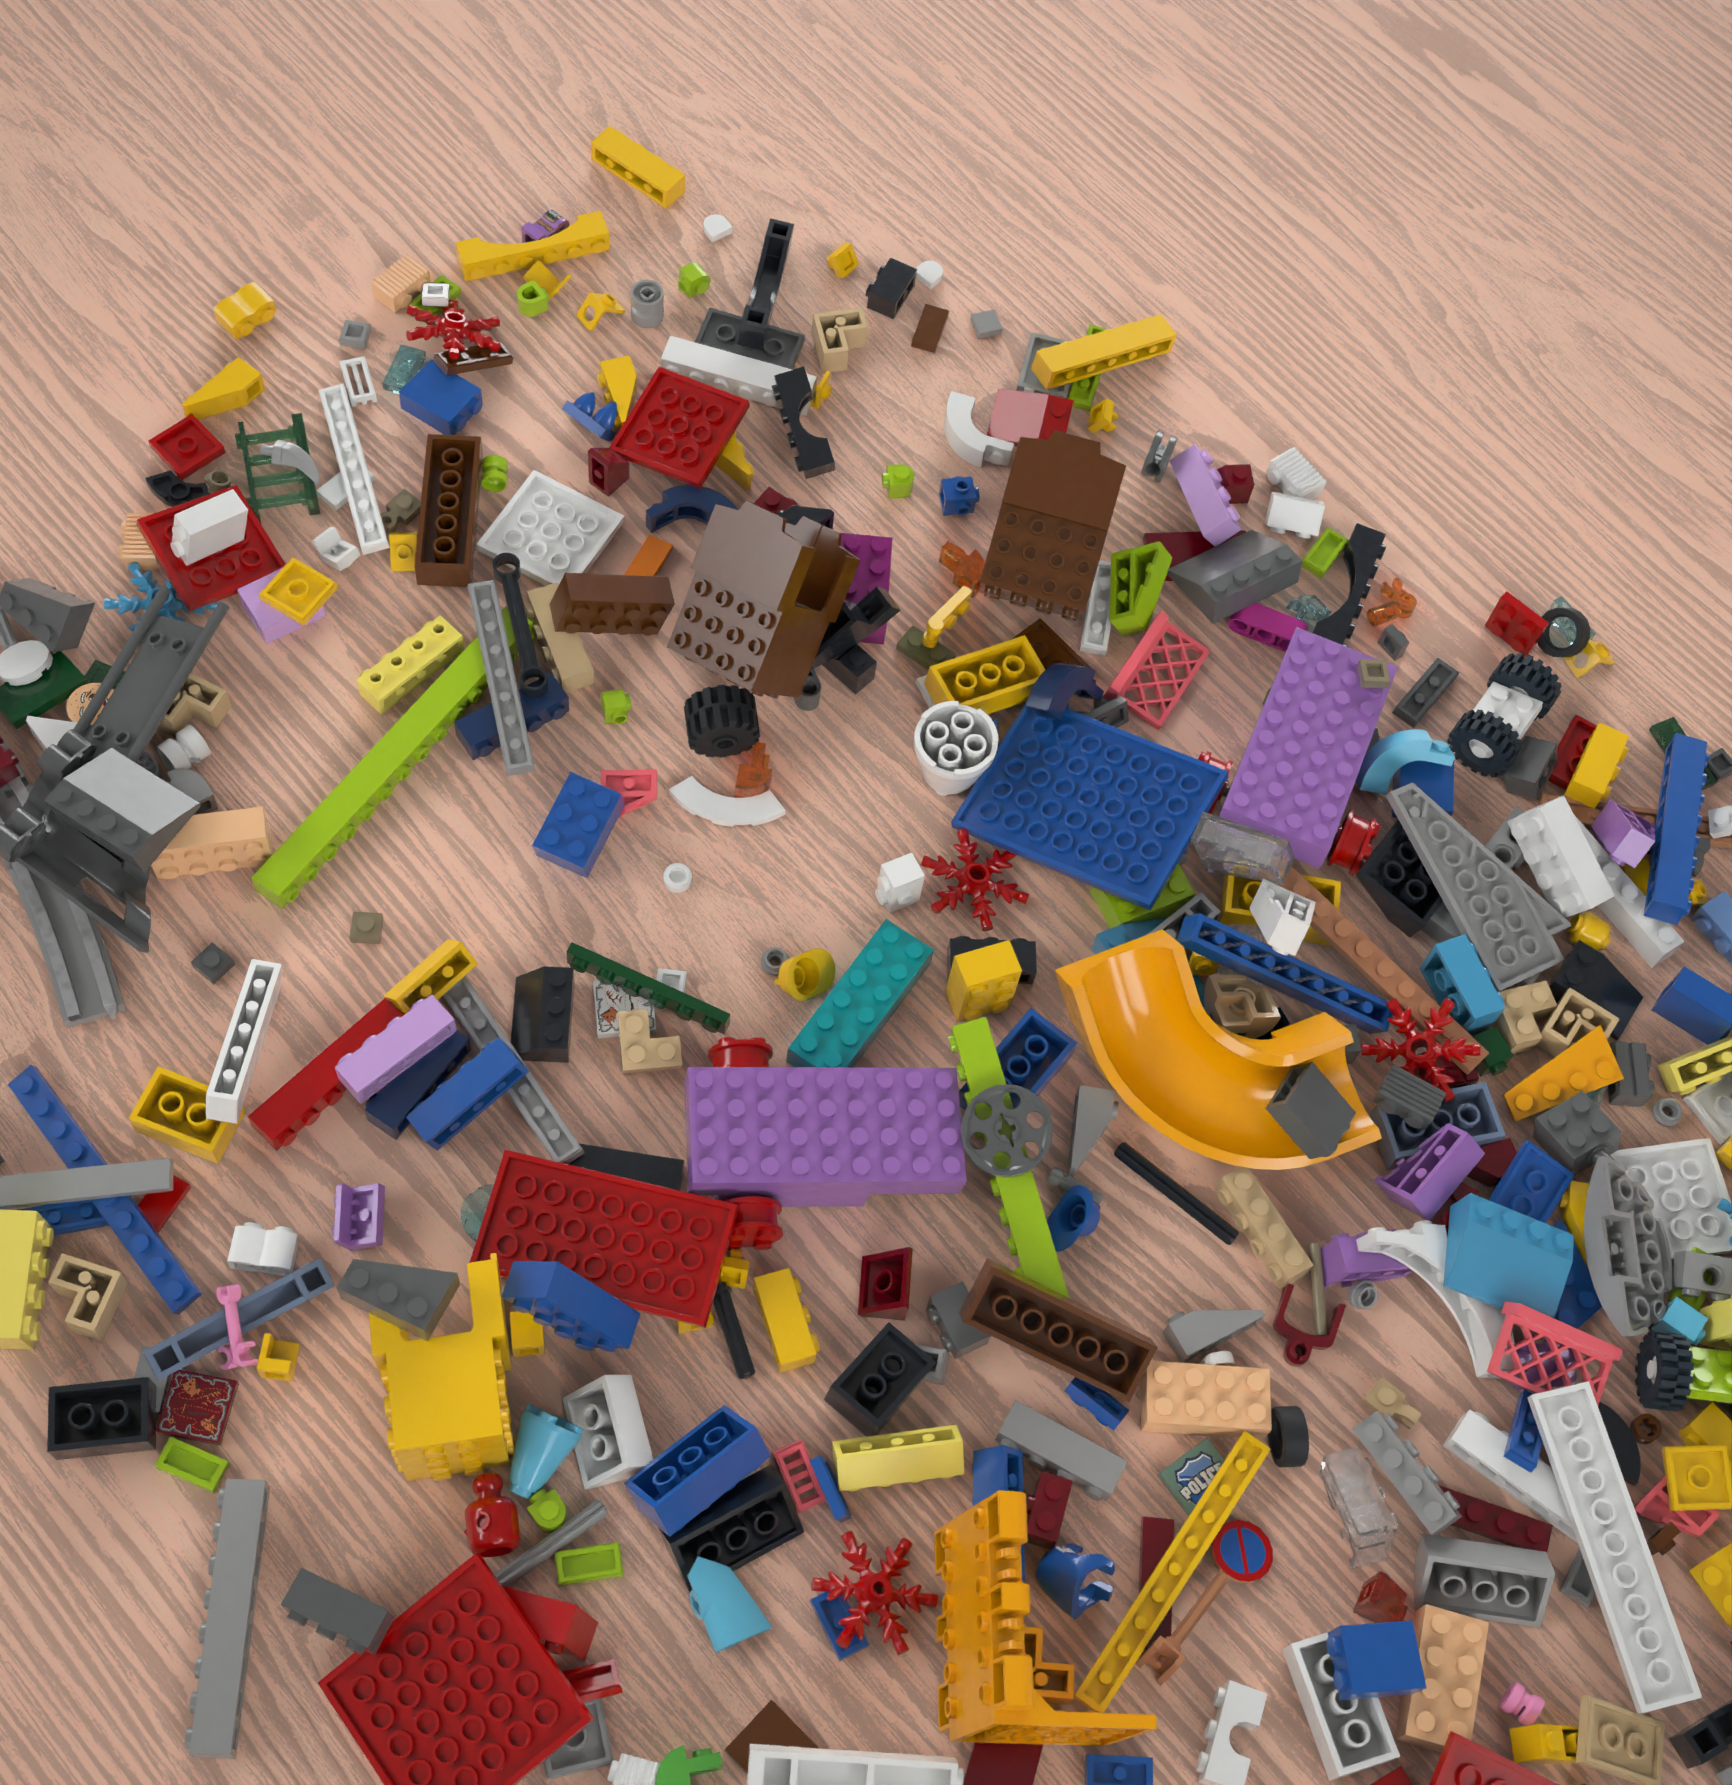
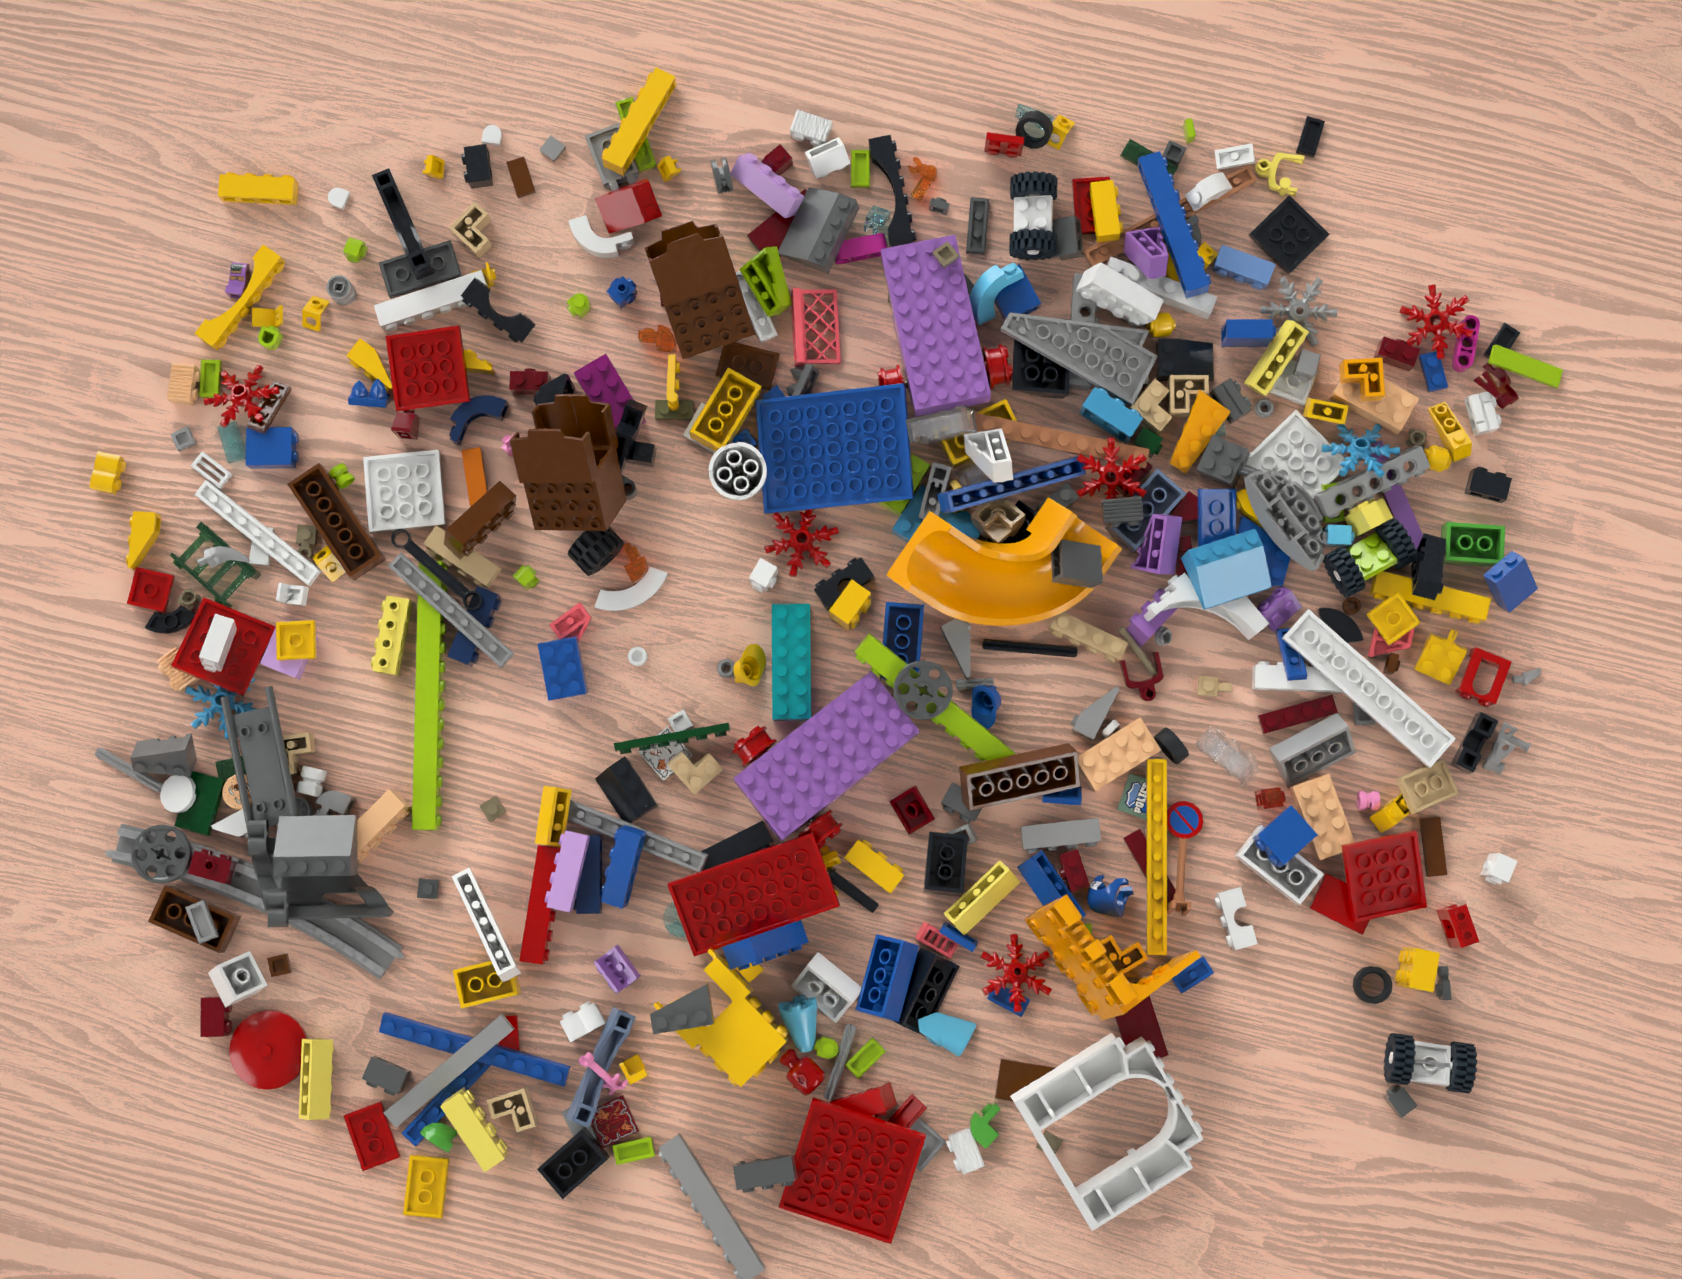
camera: 20 degrees left, 20 degrees up
(435, 295) = (211, 378): white tile -> none
(1057, 686) = (770, 387): dark blue arch -> none
(1406, 1472) = (1243, 722): light grey brick -> none
(1554, 1332) = (1274, 592): coral fence -> none

